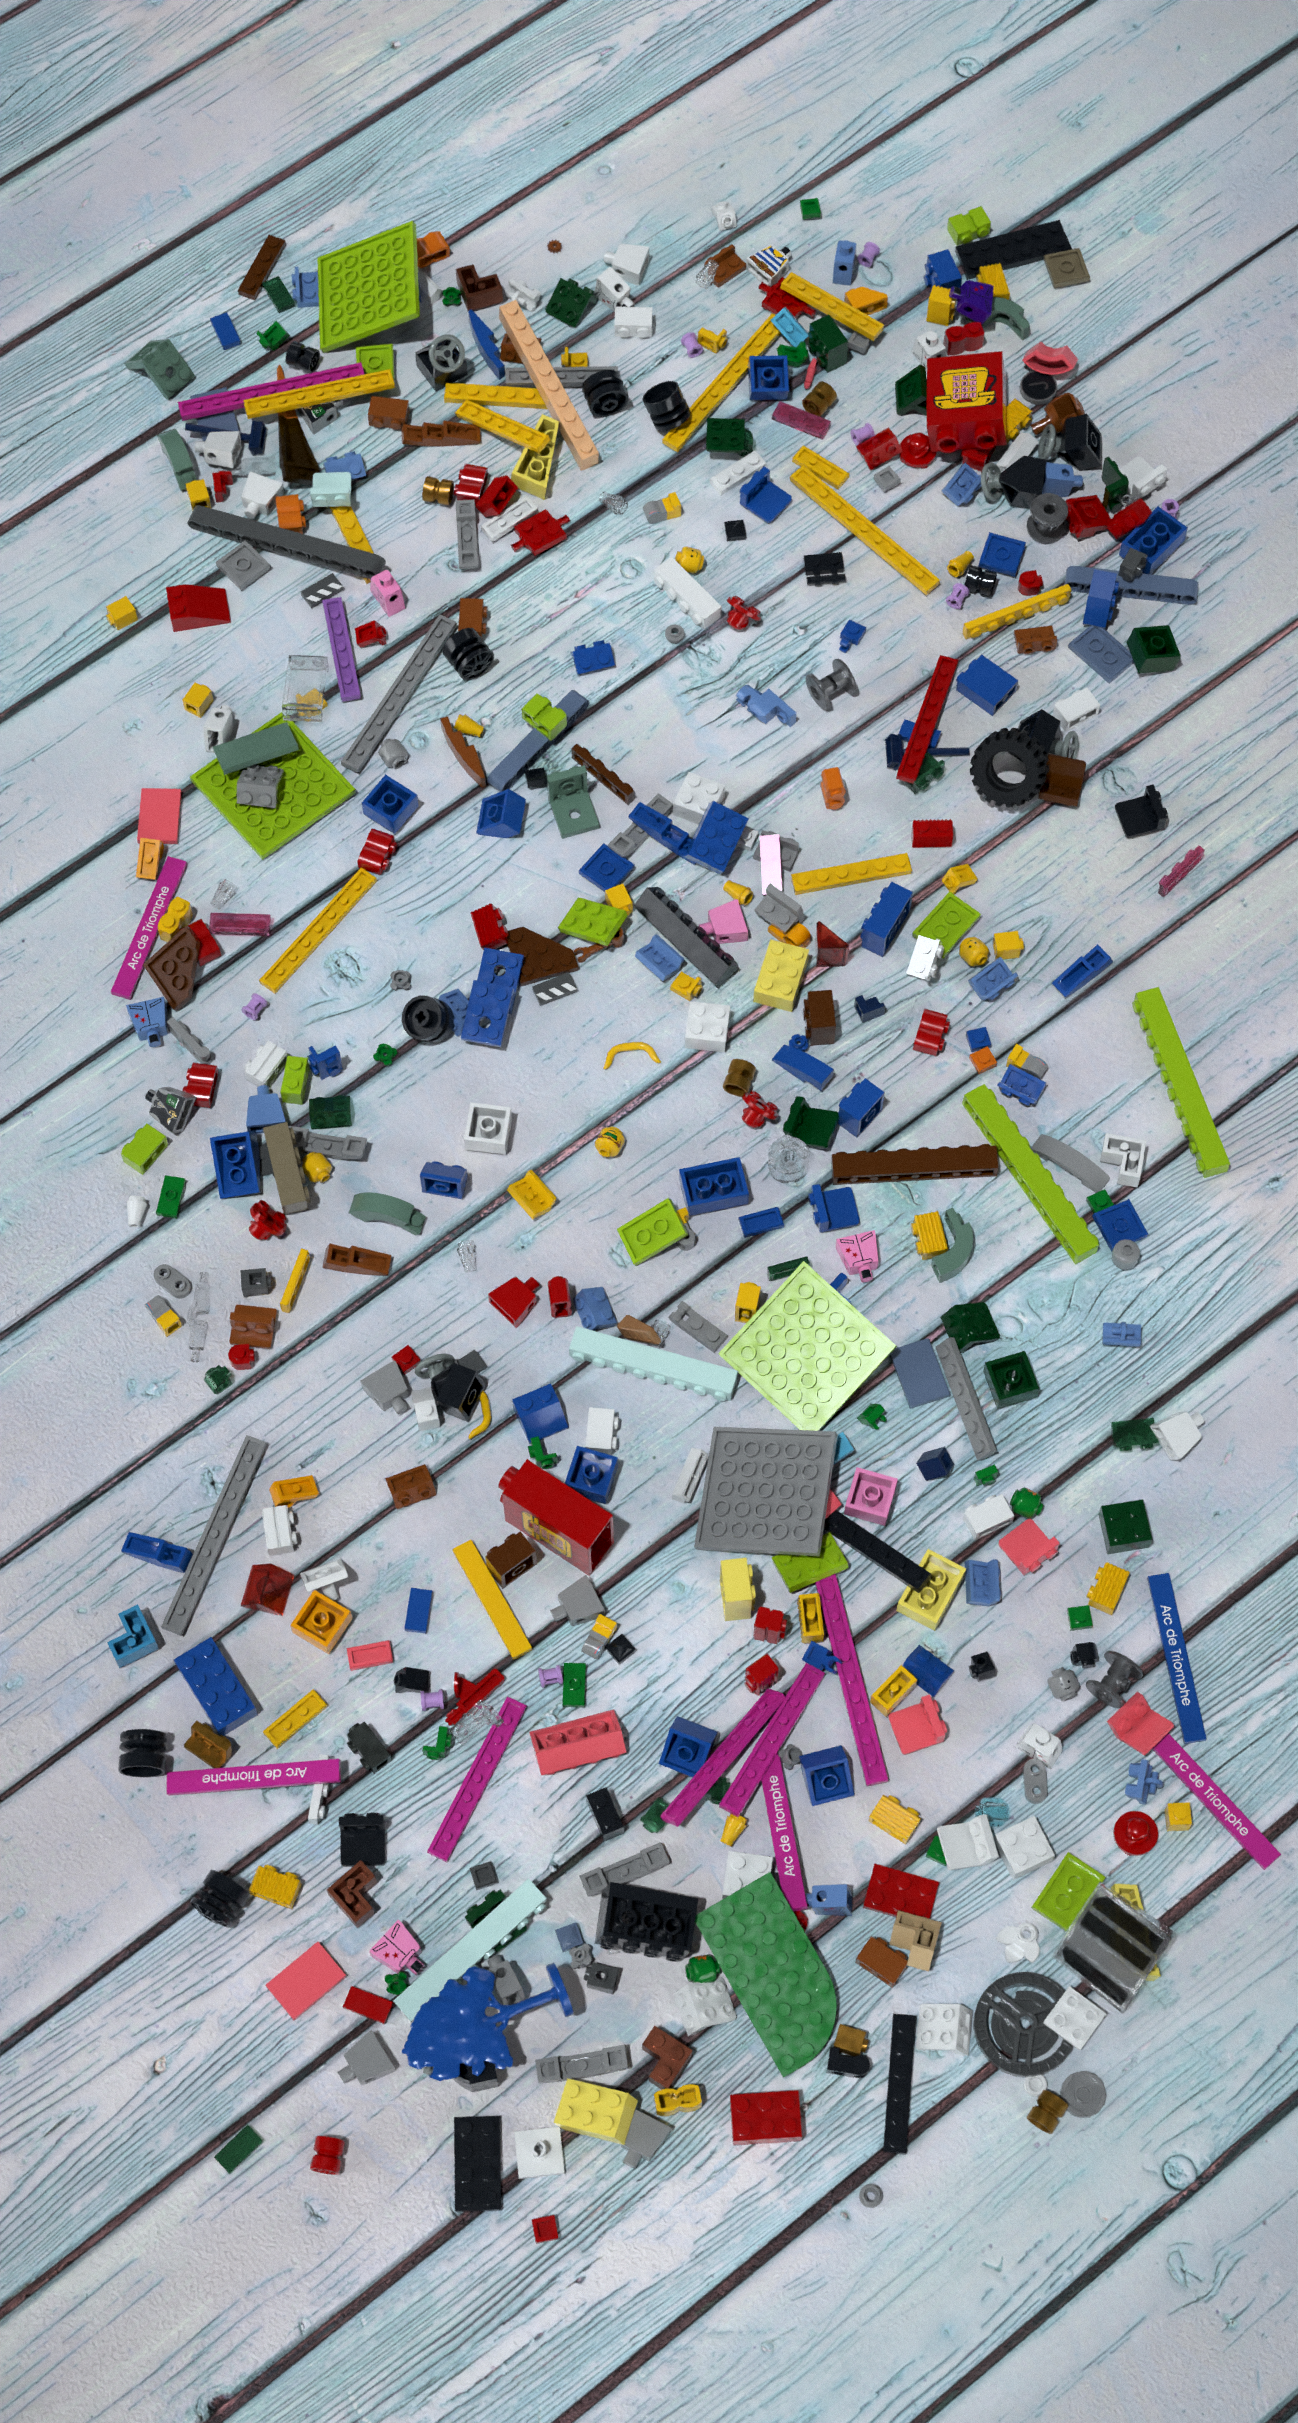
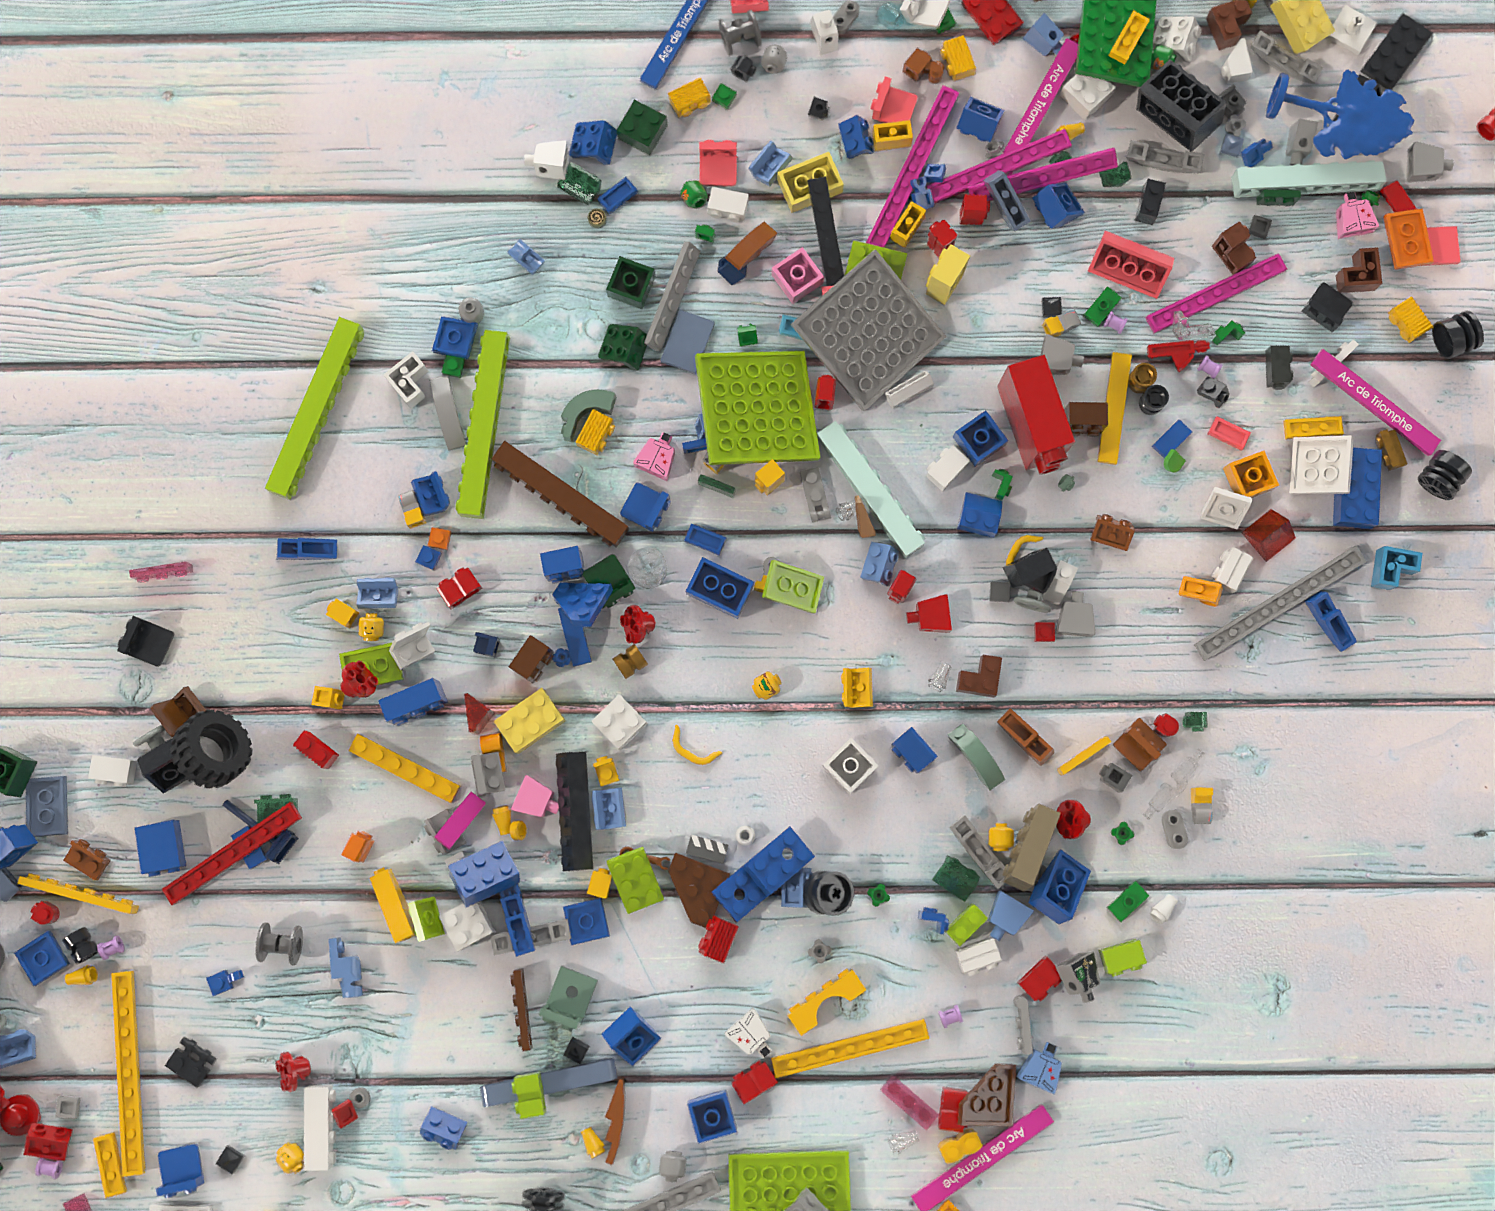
camera: 140 degrees left, 15 degrees up
(215, 1240) = (1127, 833): none -> green plate
(263, 1677) = (1321, 465): none -> white plate
(331, 1963) = (1408, 239): none -> orange plate
(357, 967) = (846, 986): none -> yellow arch
(401, 1588) = (1173, 461): none -> bright green tile
(407, 882) = (750, 1034): none -> white torso
(429, 1274) = (985, 681): none -> copper brick
(461, 1627) = (1153, 399): none -> black wheel
(484, 1498) = (1066, 483): none -> sand green plate
(487, 1639) = (1142, 377): none -> pearl gold wheel
(490, 1827) = (1233, 249): none -> copper brick
(531, 1014) = (739, 835): none -> white plate
(540, 1942) = (1254, 153): none -> blue plate
(624, 2021) = (1238, 64): none -> white slope
(676, 614) = (344, 1113): none -> red plate
(718, 892) = (518, 830): none -> yellow tile
(735, 777) = (426, 918): none -> lime plate
(737, 1702) = (1006, 200): none -> sand blue brick
(746, 1942) = (1129, 37): none -> yellow plate
(759, 1409) = (825, 392): none -> red brick
(766, 770) = (393, 904): none -> yellow slope
(817, 1084) = (582, 601): none -> blue plate
(826, 1690) = (935, 173): none -> blue tile
(925, 1787) = (921, 63): none -> dark orange brick
(933, 1489) = (751, 245): none -> dark orange slope
(943, 899) = (358, 680): none -> red plate
(1093, 1420) = (597, 218): none -> tile
(1093, 1454) = (617, 195): none -> blue tile
(1156, 1482) = (593, 140): none -> blue bracket

